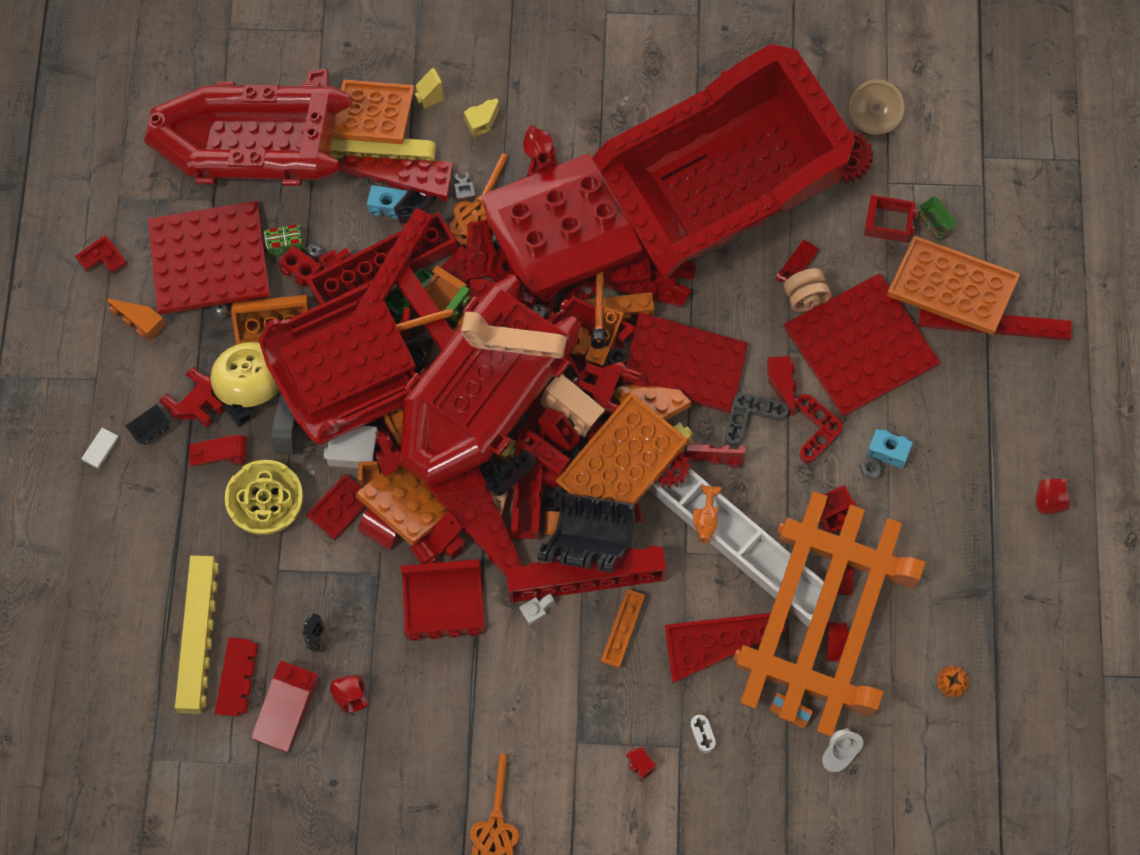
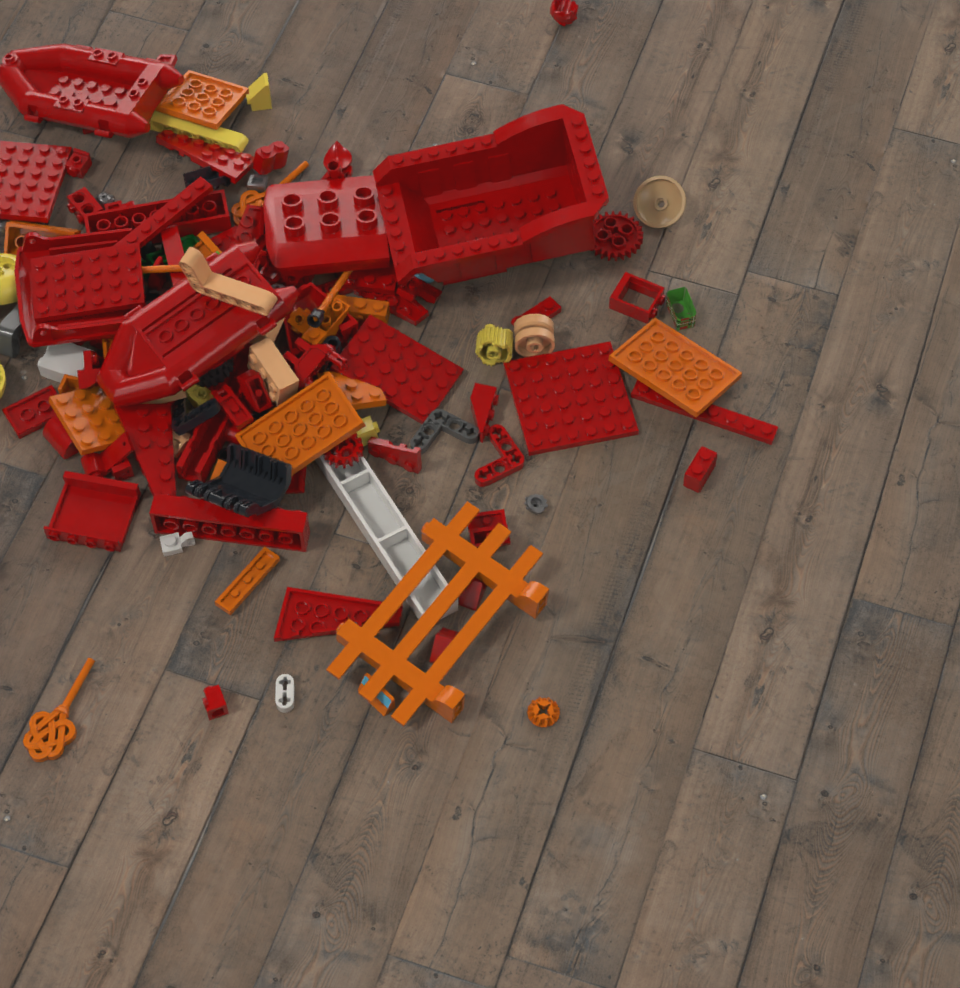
camera: 15 degrees right, 10 degrees down
(272, 216) = (78, 163): none -> red brick
(282, 238) = (76, 179): piece -> none
(380, 195) = (176, 169): medium azure brick -> none
(469, 160) = (270, 157): none -> red brick
(481, 118) = (299, 127): light yellow slope -> none
(706, 519) = (358, 502): orange animal -> none
(771, 310) = (494, 345): none -> light yellow brick
(842, 749) = (409, 742): white piece -> none
(894, 457) = (565, 500): medium azure brick -> none
(1014, 388) = (700, 469): none -> red brick
(1052, 496) = (700, 571): red piece -> none

